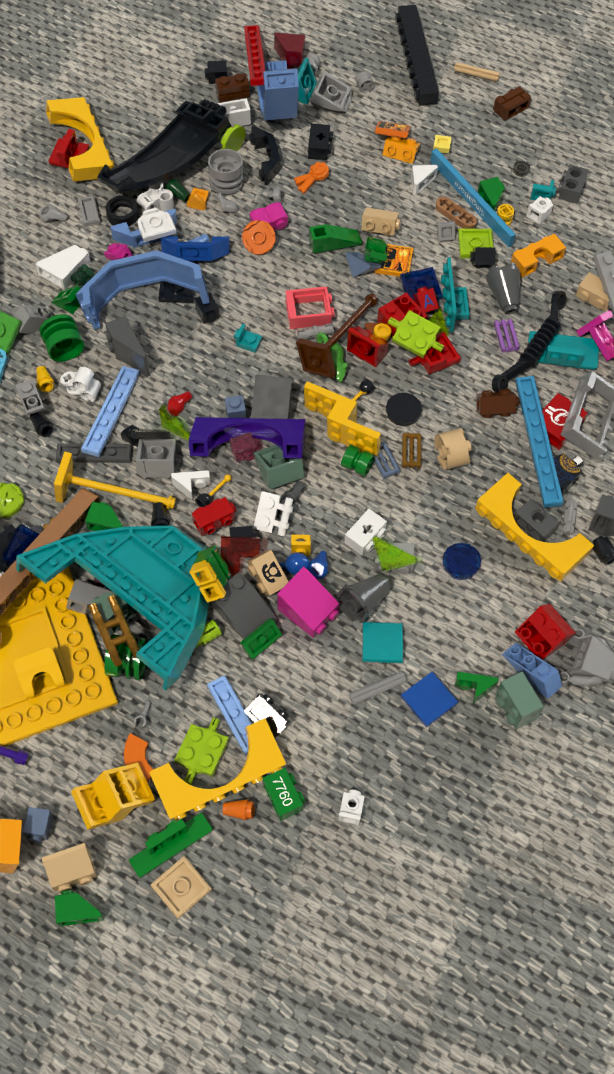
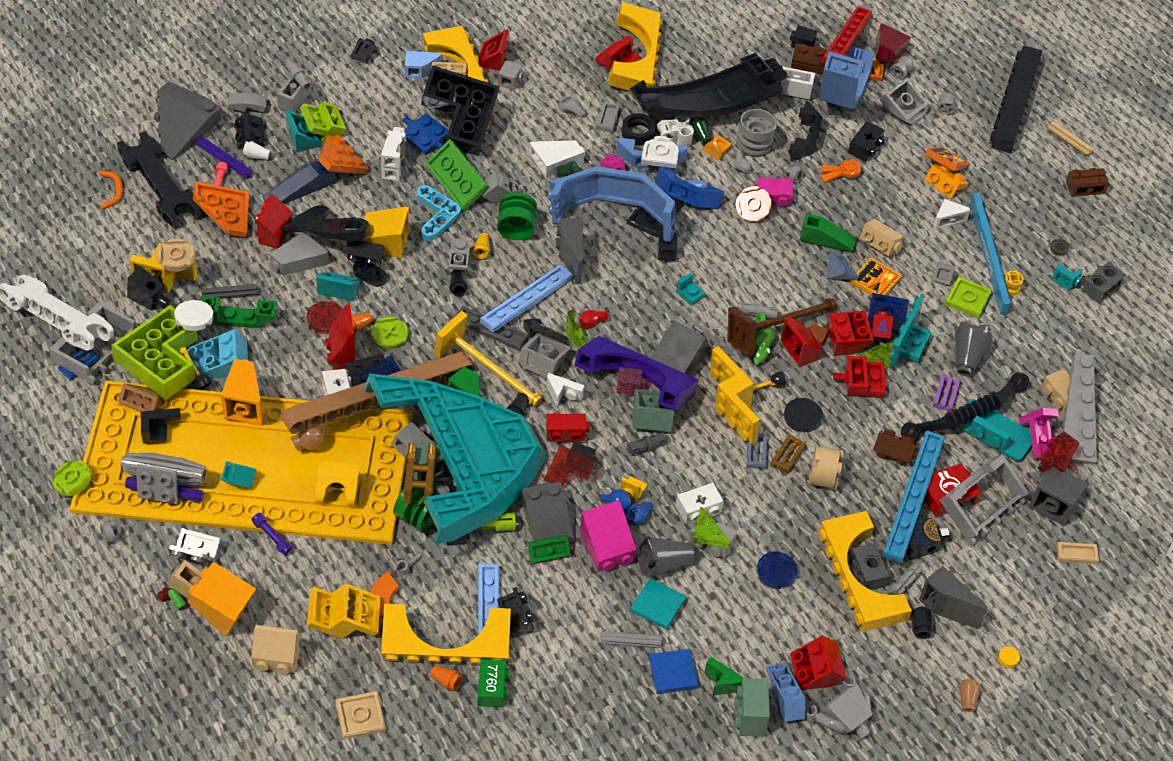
camera: 25 degrees right, 10 degrees down
(38, 824) = (268, 605): sand blue brick -> none
(67, 299) = (541, 187): green slope -> none
(74, 909) = (260, 687): green slope -> none
(81, 383) = (513, 263): white piece -> none
(169, 843) = (370, 673): green bracket -> none
(201, 750) = (442, 615): lime plate -> none
(205, 499) = (569, 409): hinge -> none
(212, 573) = (534, 468): hips -> none
(233, 138) = (781, 105): lime tile -> none
(235, 407) = (641, 342): sand blue brick -> none
(267, 513) = (618, 445): white plate -> none
(267, 573) = (586, 492): tan brick -> none
(304, 296) = (768, 275): coral window -> none
(306, 81) = (882, 80): teal slope -> none
(351, 814) = (546, 729): white brick -> none
(358, 460) = (728, 436): green wheel -> none
(375, 250) = (859, 260): green brick -> none
(382, 331) = (823, 336): yellow tile -> none
(415, 334) = (850, 350): lime plate -> none
(442, 143) = (990, 192): light yellow plate -> none
(453, 207) = (964, 255): medium nougat beam -> none
(483, 256) = (965, 311): black brick -> none
(491, 191) = (1013, 256): green slope -> none
(543, 207) = (1053, 292): white brick -> none
(548, 248) = (1039, 331): light orange arch -> none

